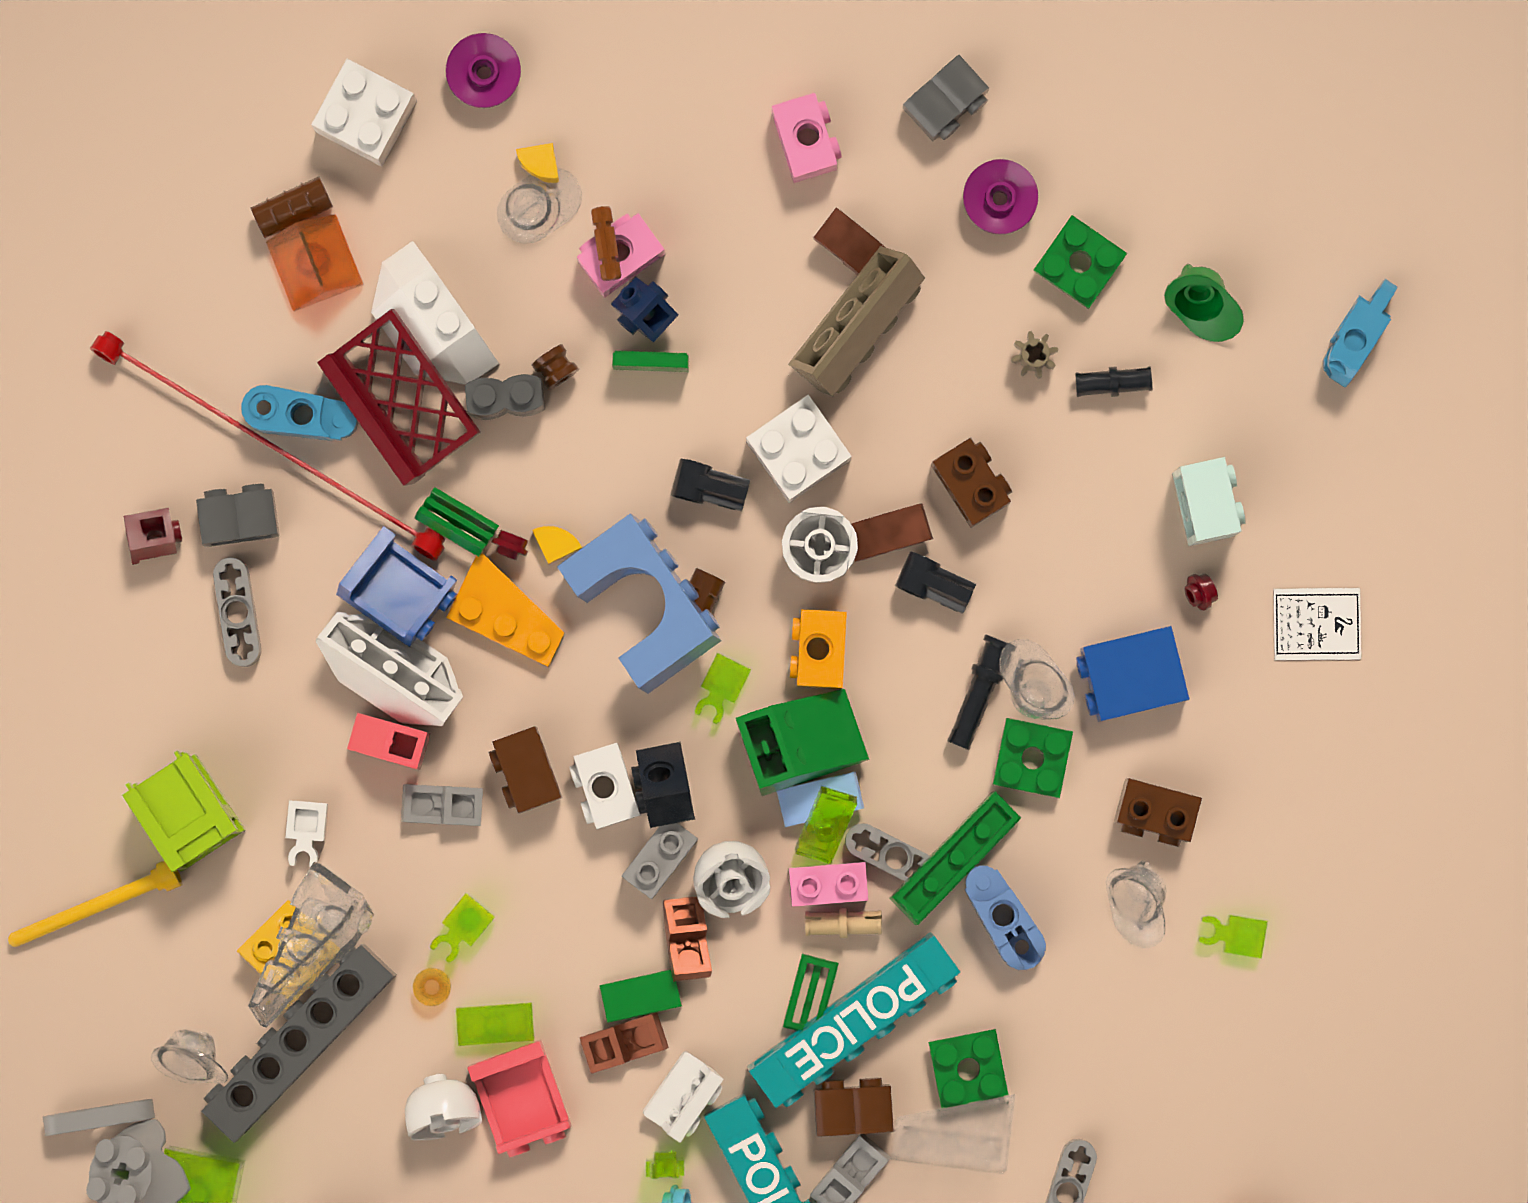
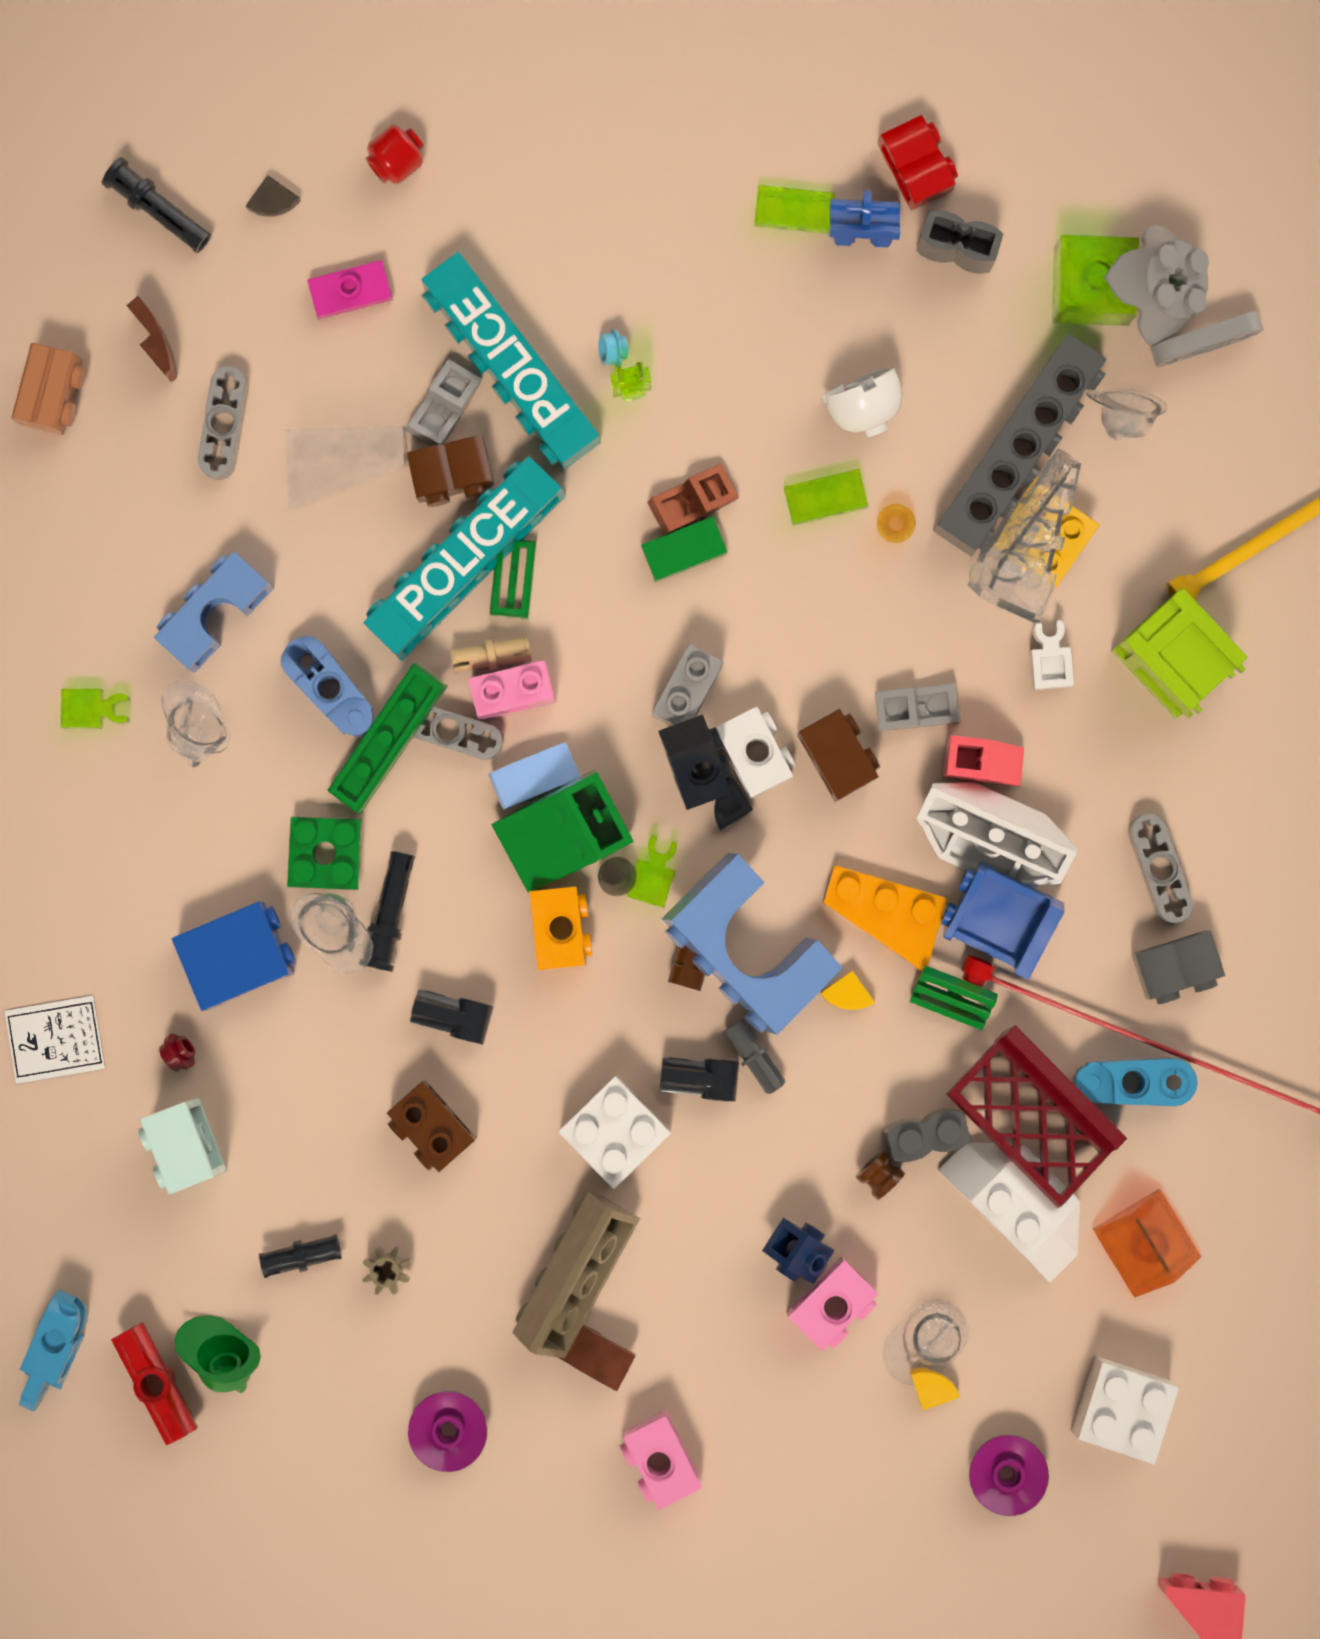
camera: 175 degrees right, 0 degrees up
(144, 525) = (1272, 940): dark red brick -> none
(291, 207) = (1182, 1297): reddish brown axle -> none
(466, 923) = (872, 591): clear neon green plate -> none
(510, 545) = (894, 982): dark red plate -> none
(520, 1098) = (787, 426): coral panel -> none
(606, 243) = (850, 1313): dark orange axle -> none
(636, 738) = (731, 807): none -> black tile
(650, 361) = (782, 1197): green tile -> none
(654, 497) = (755, 1056): none -> dark grey axle
(683, 1096) = (623, 453): white bracket -> none
(686, 939) = (646, 613): slope -> none
(731, 879) = (611, 678): white cylinder -> none
(757, 690) = (617, 876): none -> clear smoke plate
(819, 545) = (576, 1034): white cylinder -> none
(826, 825) = (524, 749): clear neon green plate -> none
(891, 531) = (508, 1060): copper slope -> none
(946, 99) = (520, 1526): dark grey brick -> none
(988, 1083) = (321, 516): green piece -> none
(1073, 239) = (332, 1387): green piece -> none
(1132, 991) = (186, 631): none -> medium blue arch
(1157, 811) = (188, 819): reddish brown brick -> none
(1260, 262) = (167, 1407): none -> red piece

